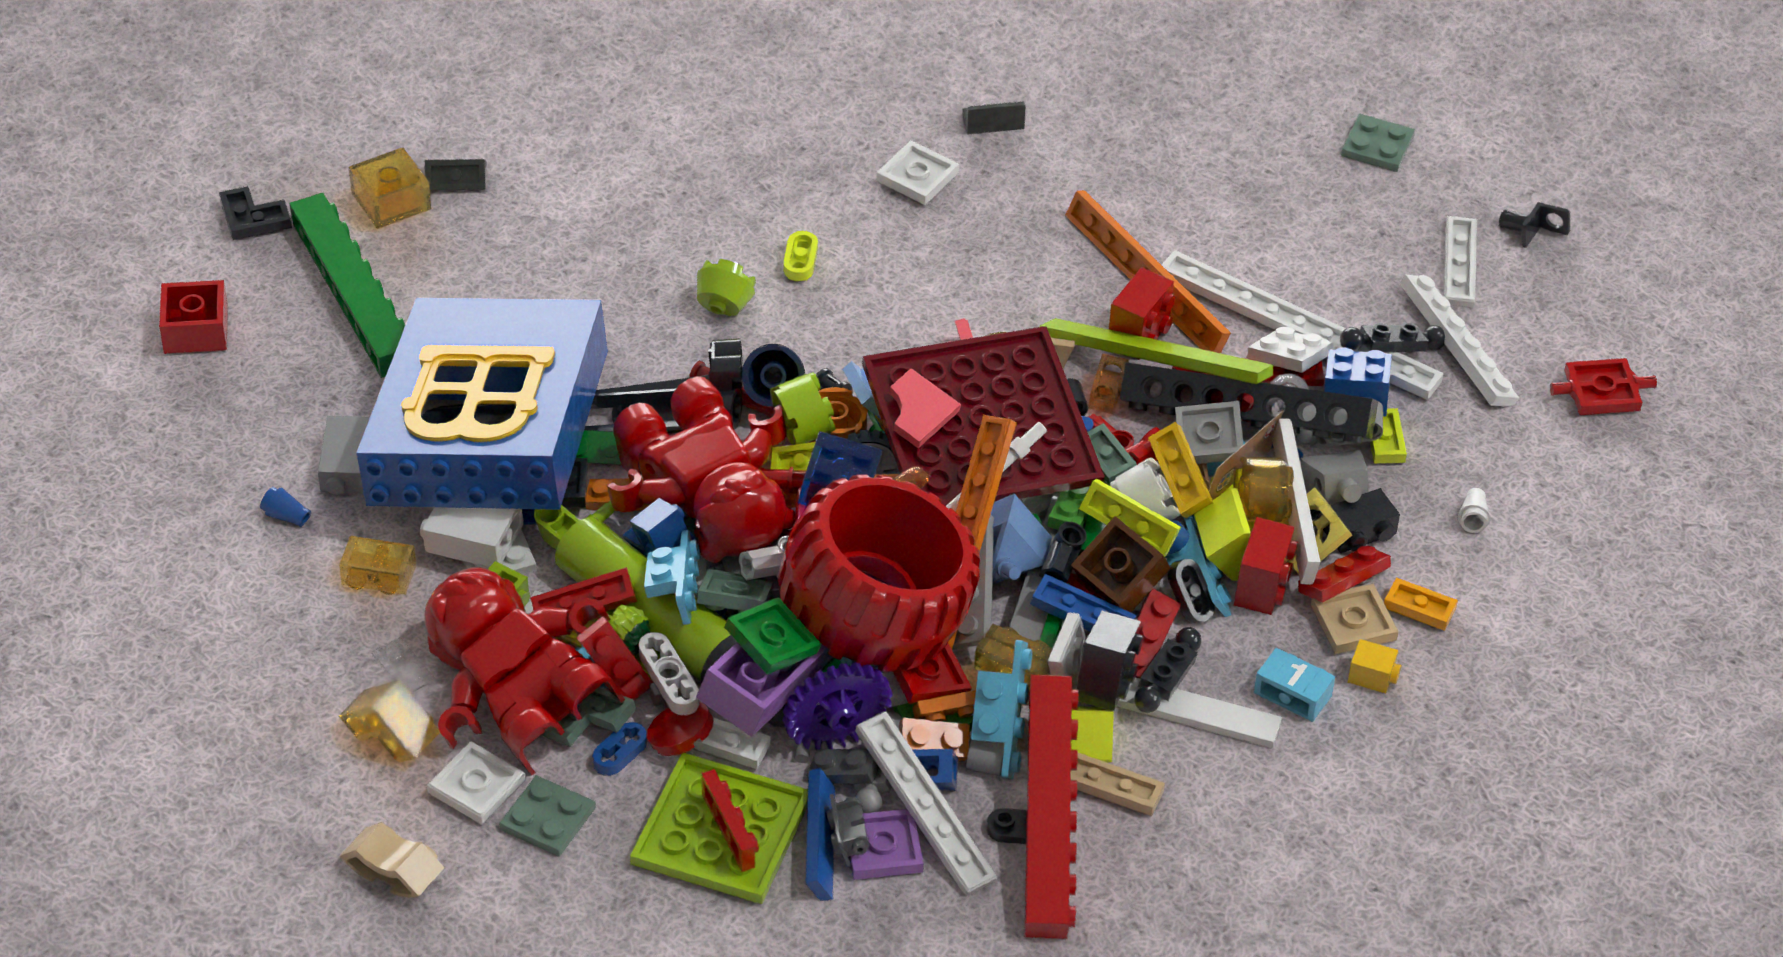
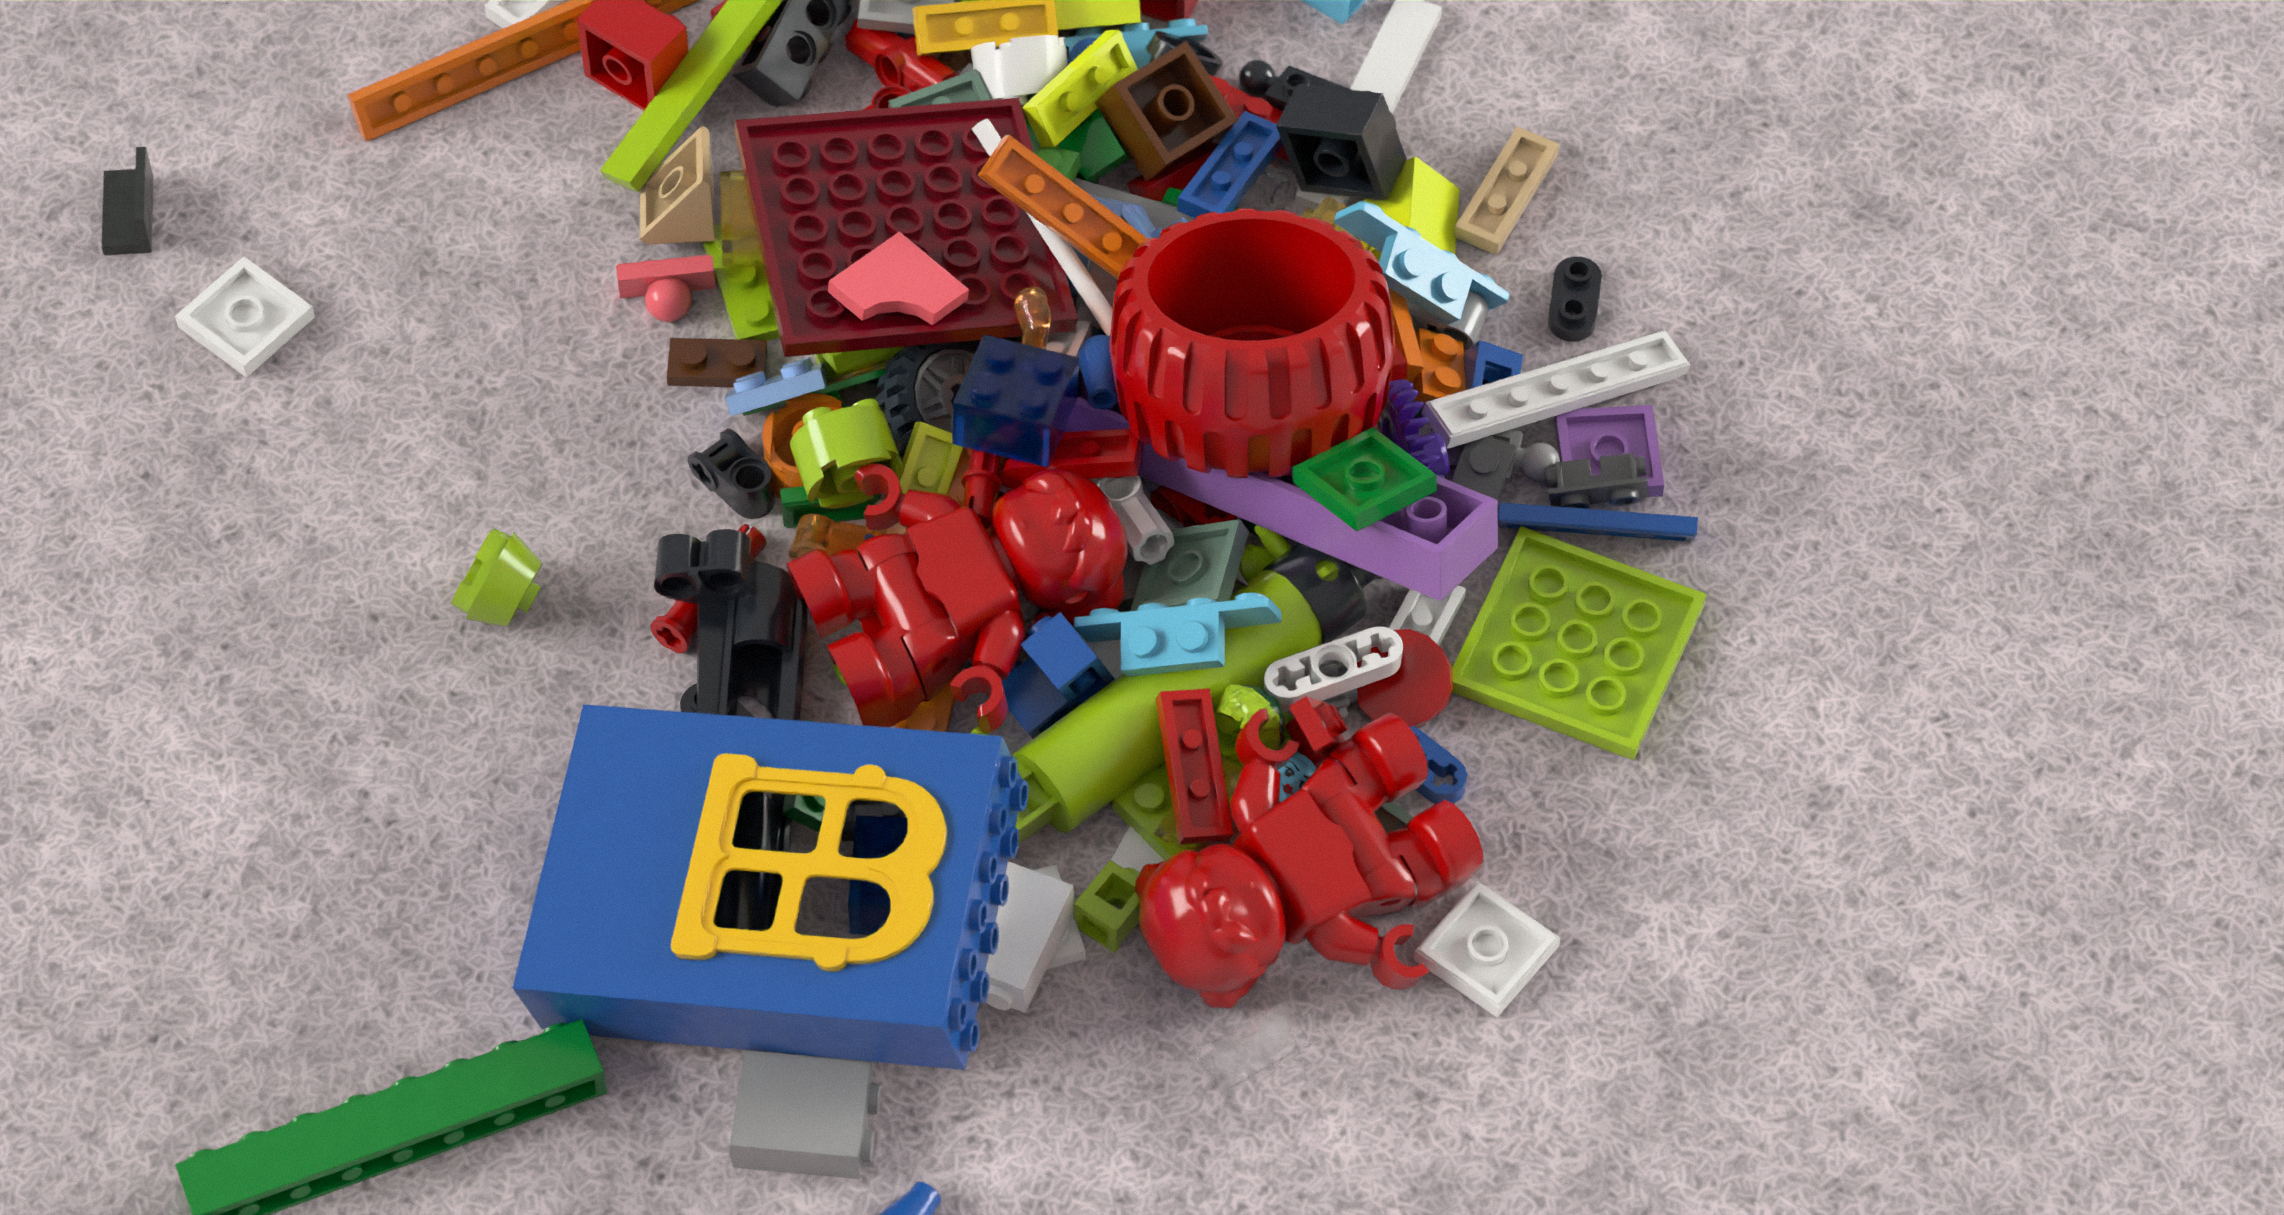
camera: 85 degrees left, 10 degrees up
(377, 565) = (1050, 1080): clear yellow brick -> none
(390, 187) = (171, 1064): clear yellow brick -> none
(393, 718) = (1379, 1050): clear yellow brick -> none
(395, 860) = (1653, 1035): tan brick -> none
(456, 174) = (127, 974): pearl dark grey panel -> none
(547, 815) = (1545, 860): sand green plate -> none
(729, 820) = (1594, 614): red plate -> none
(767, 368) = (721, 496): dark blue cone -> none
(800, 256) = (418, 482): neon yellow plate -> none
(1048, 807) = (1582, 244): red brick -> none
(1064, 551) = (1119, 177): black piece -> none
(1067, 649) = (1303, 187): white tile -> none
(1107, 384) = (746, 100): clear orange leg -> none

